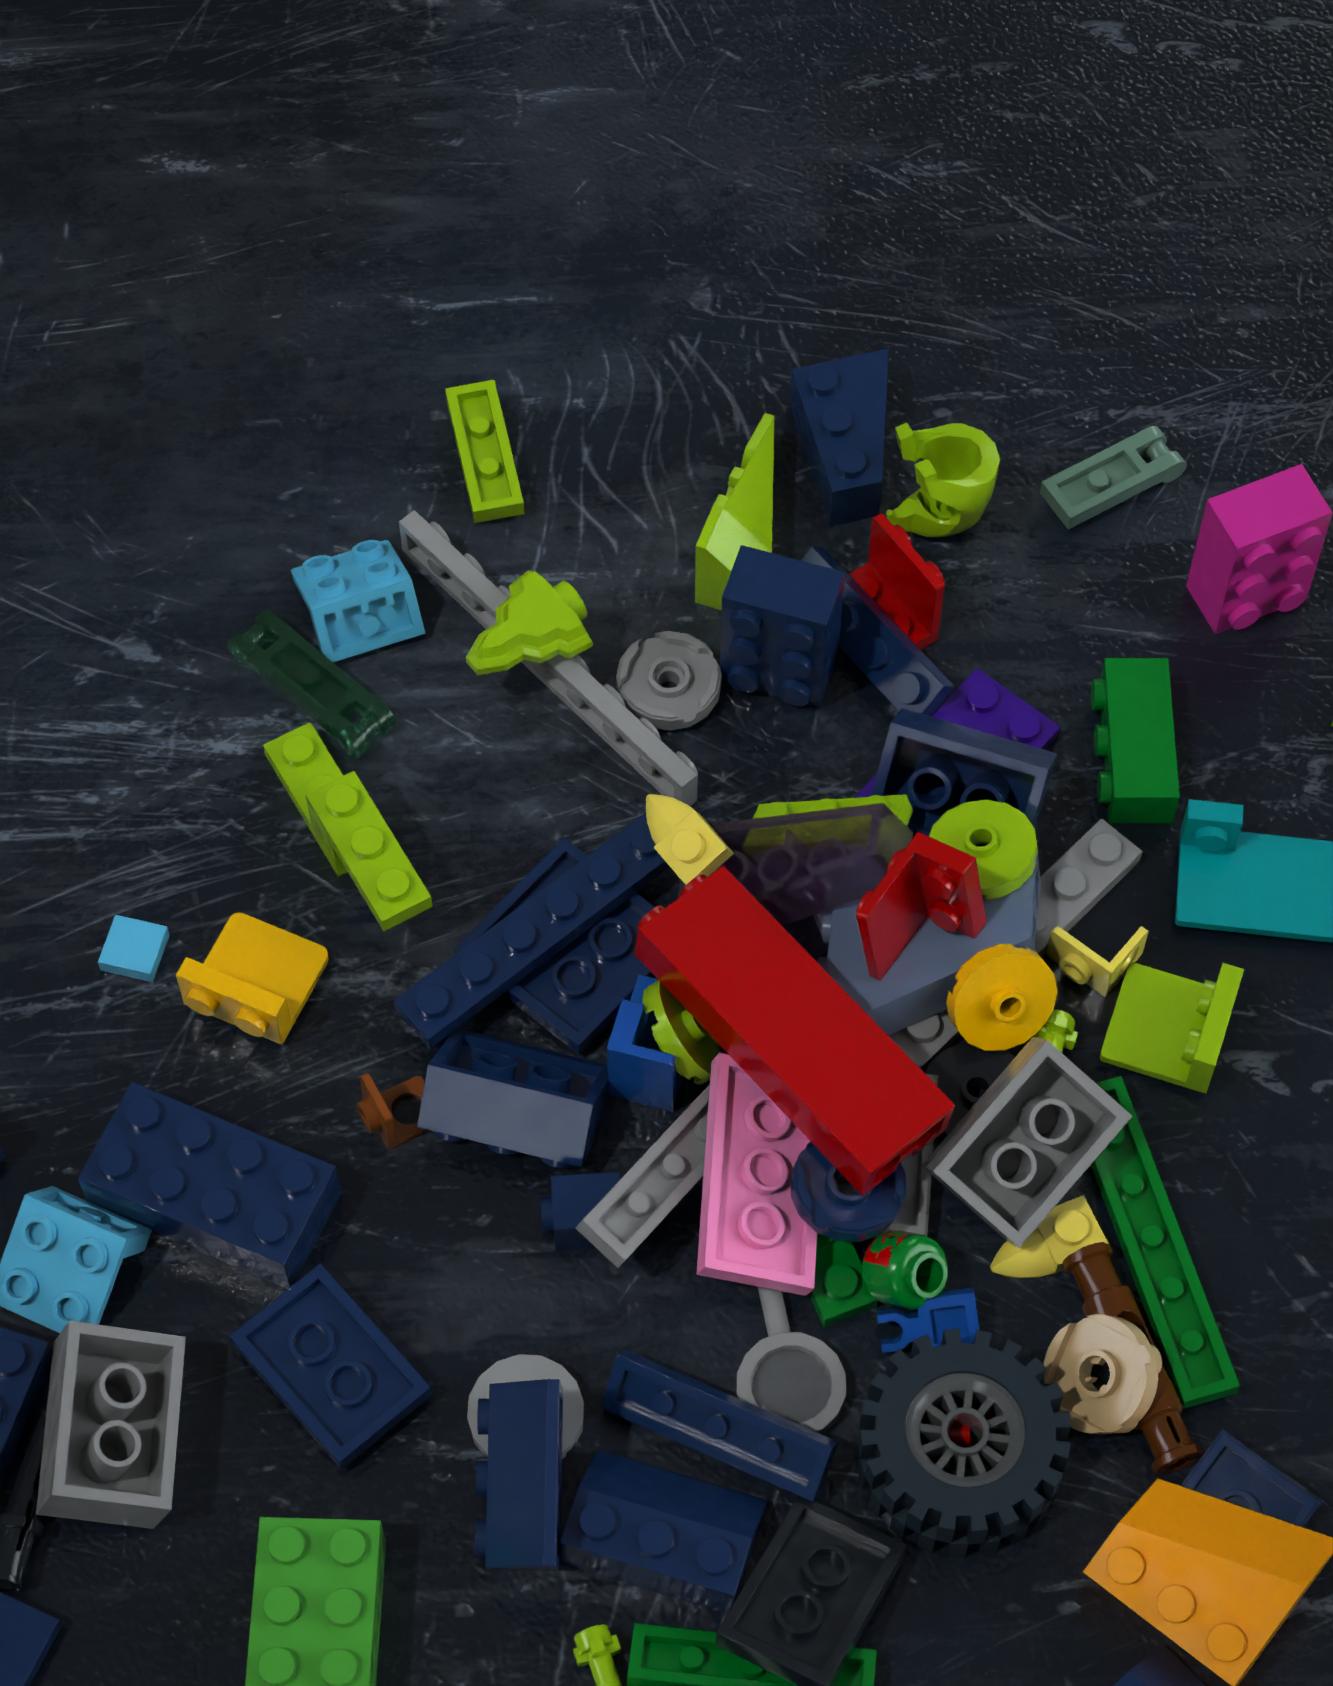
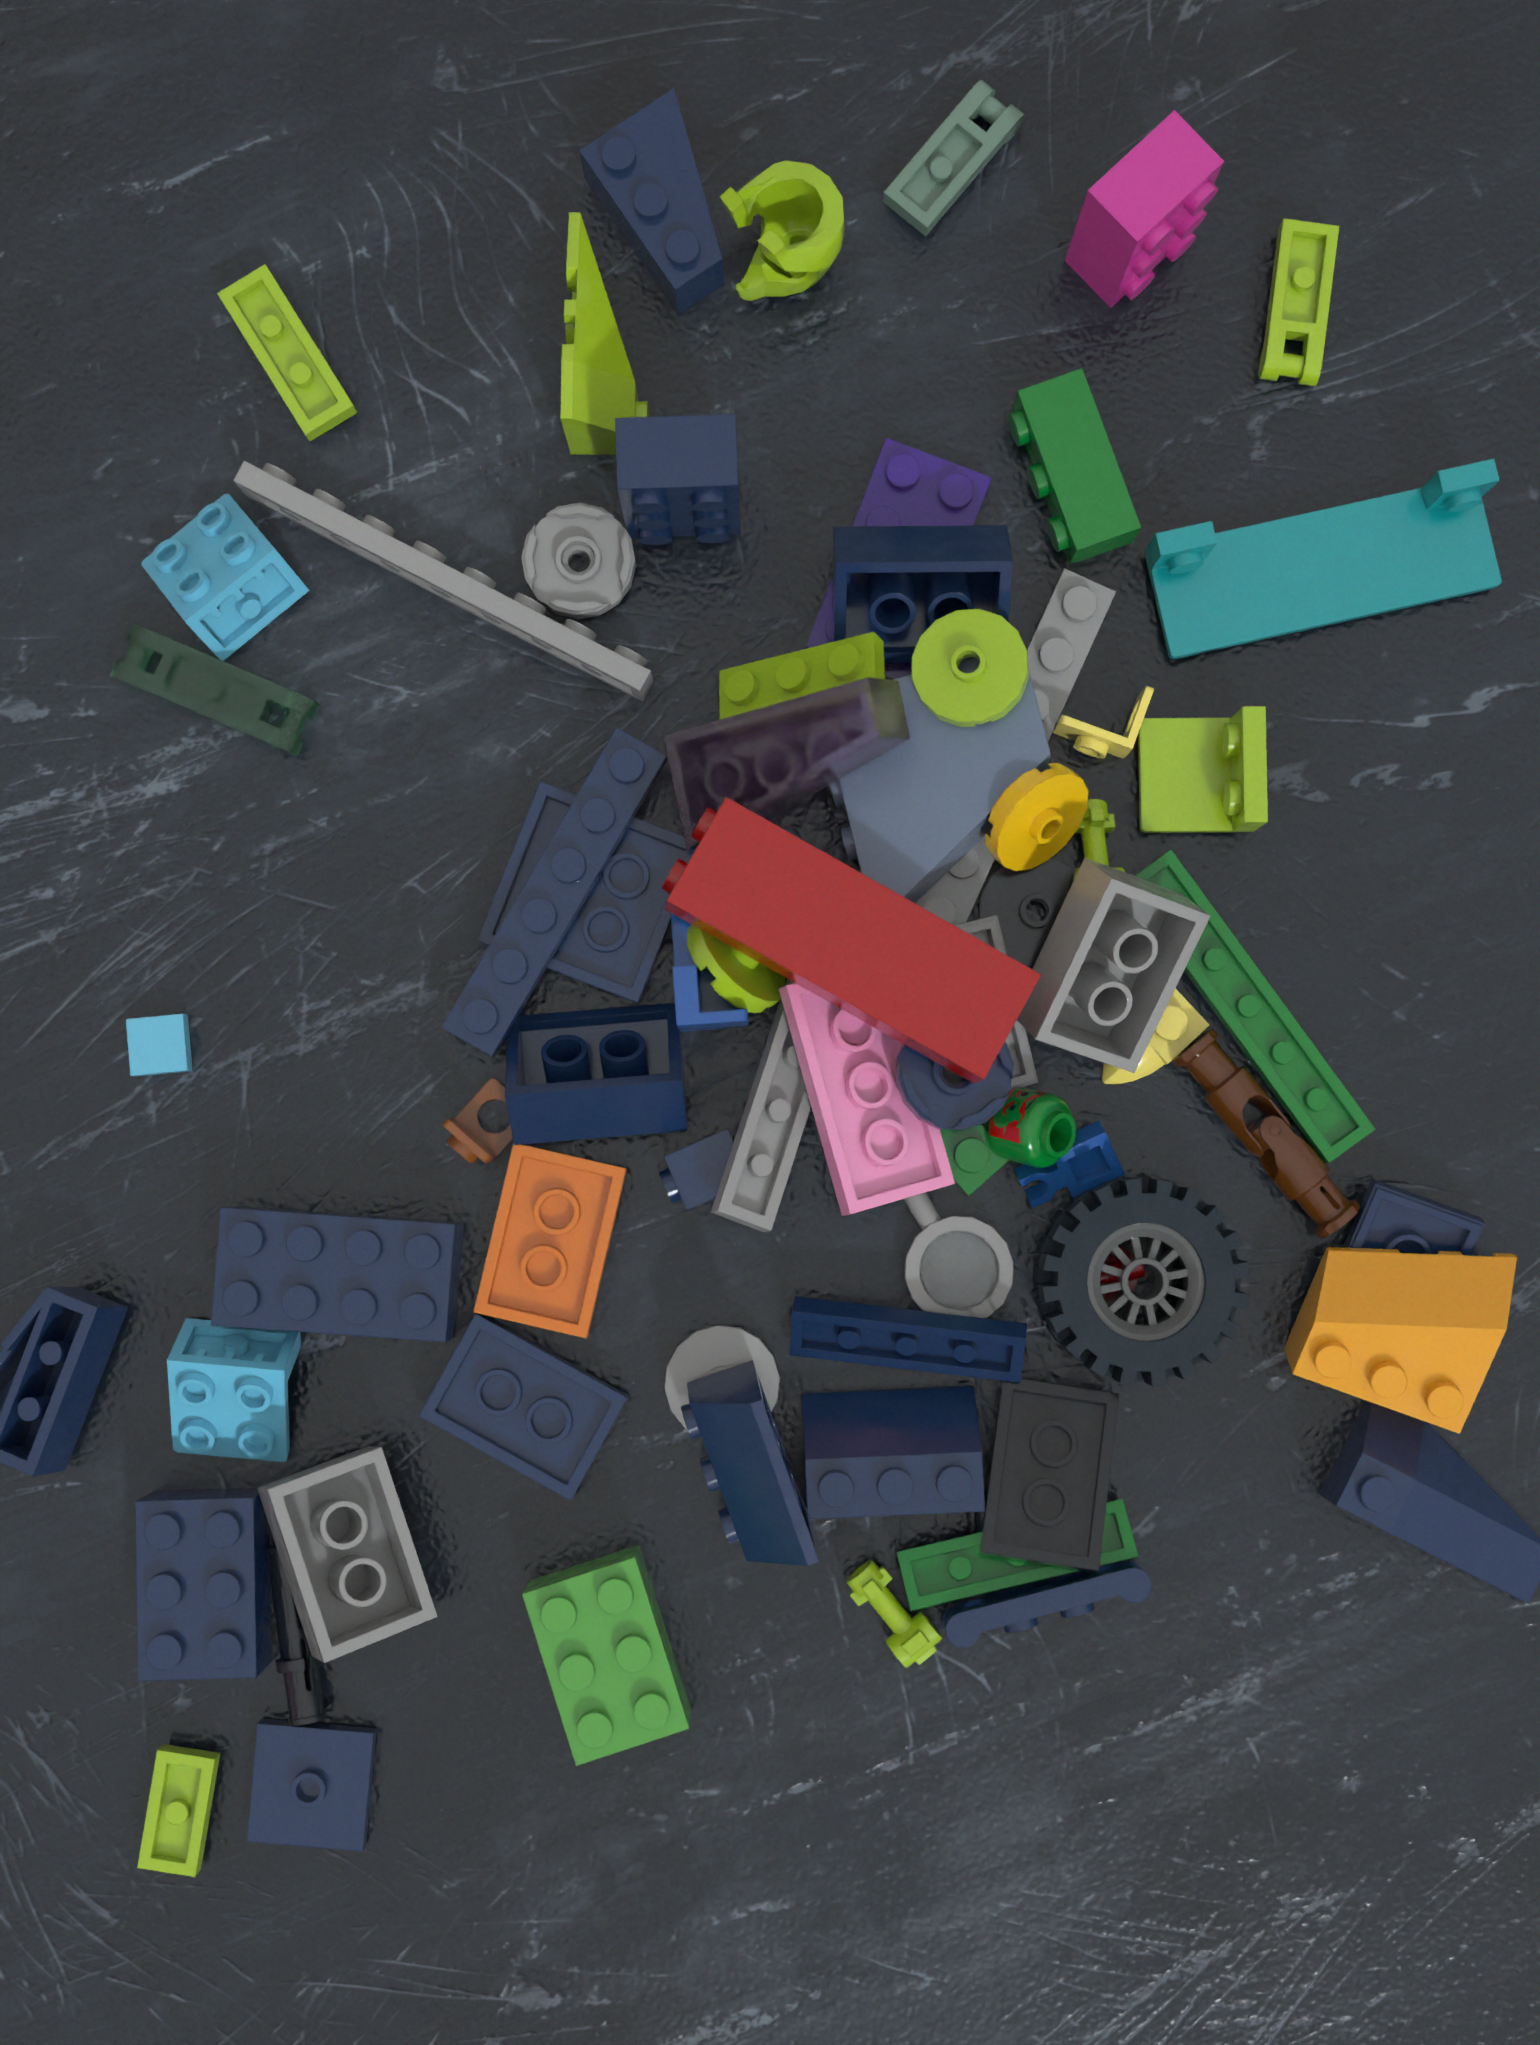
camera: 20 degrees left, 25 degrees up
(254, 977) = (291, 1038): yellow bracket -> none
(348, 826) = (318, 848): lime bracket -> none
(416, 1227) = (550, 1240): none -> orange plate
(532, 626) = (421, 566): lime rock -> none
(684, 838) = (667, 758): light yellow plate -> none
(883, 648) = (770, 442): dark blue plate -> none
(902, 582) = (773, 388): red bracket -> none
(919, 884) = (933, 735): red bracket -> none
(1132, 1370) = (1270, 1148): tan plate -> none

